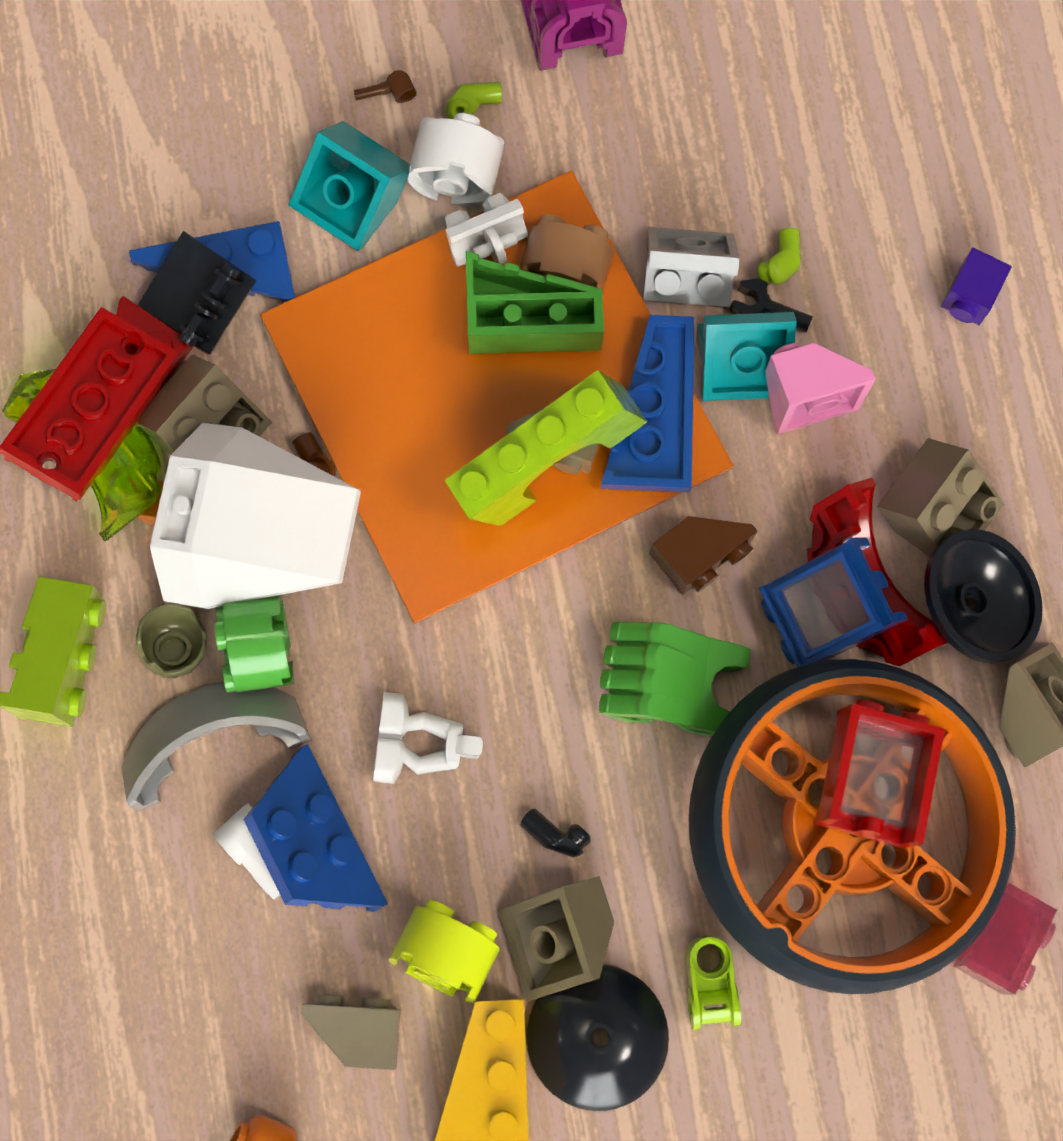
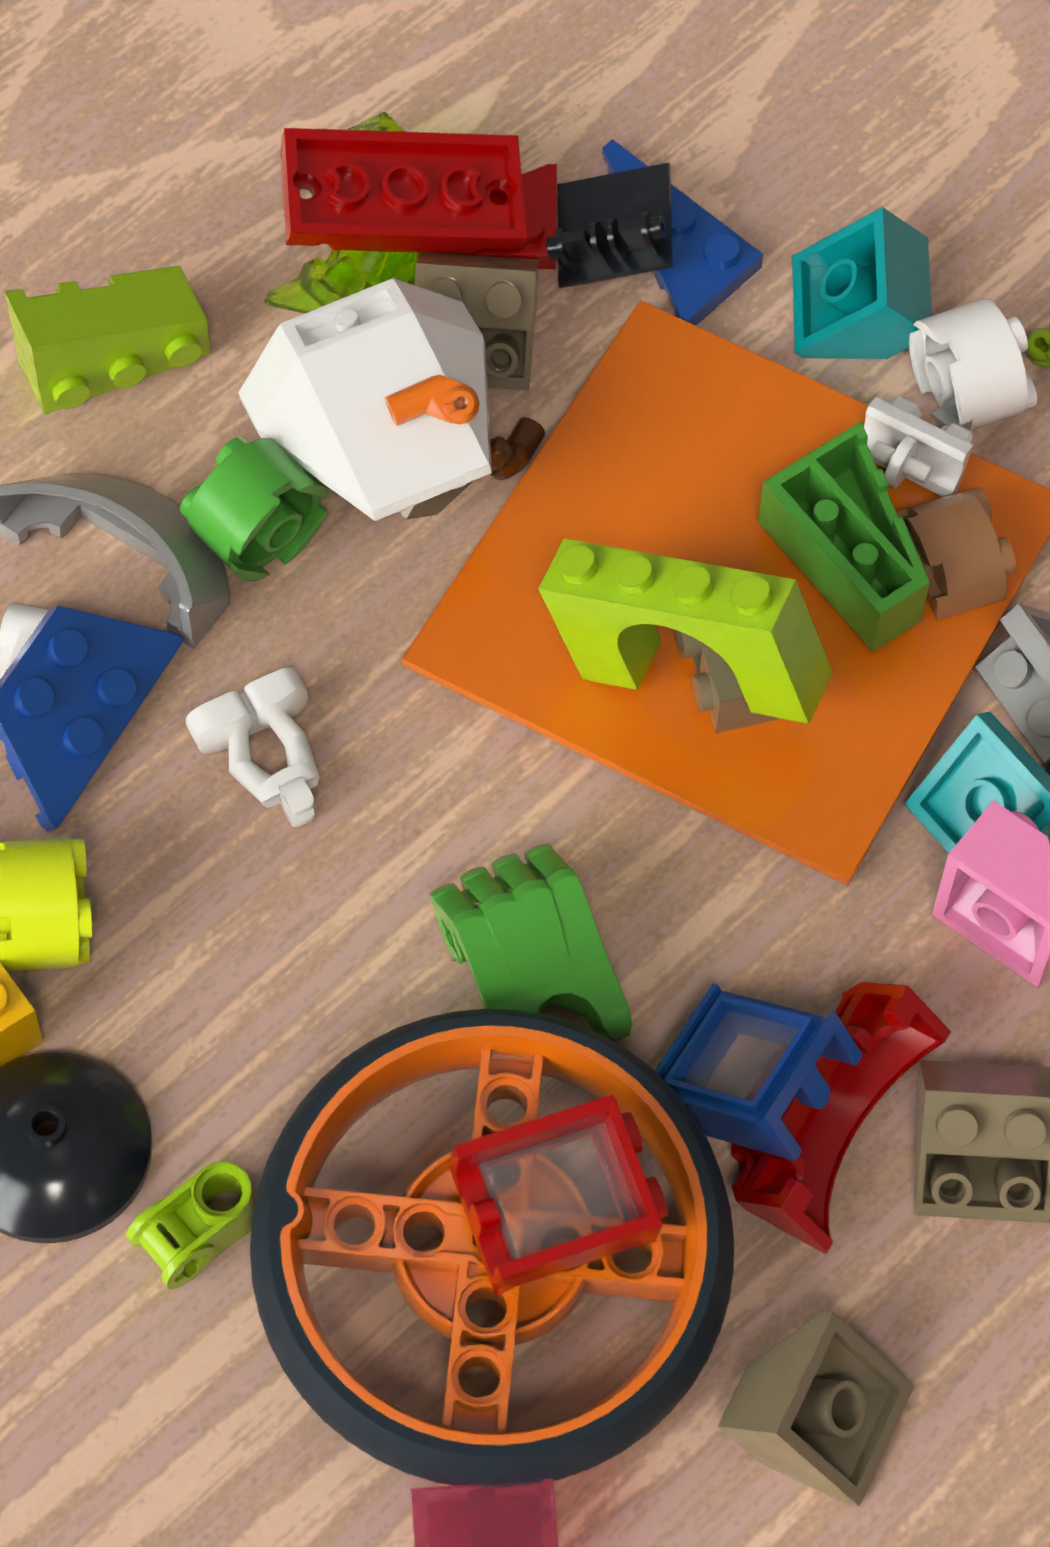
camera: 60 degrees right, 15 degrees down
(171, 640) = (196, 428): olive hair -> none
(291, 489) = (436, 397): none -> orange arm
(396, 83) = (1021, 271): reddish brown hand -> none
(552, 837) = (251, 952): black arm -> none
(559, 937) = (146, 1017): dark tan slope -> none
(662, 388) = (806, 772): blue wing -> none
(699, 547) = (716, 901): reddish brown slope -> none
(983, 596) = (935, 1236): black dish -> none

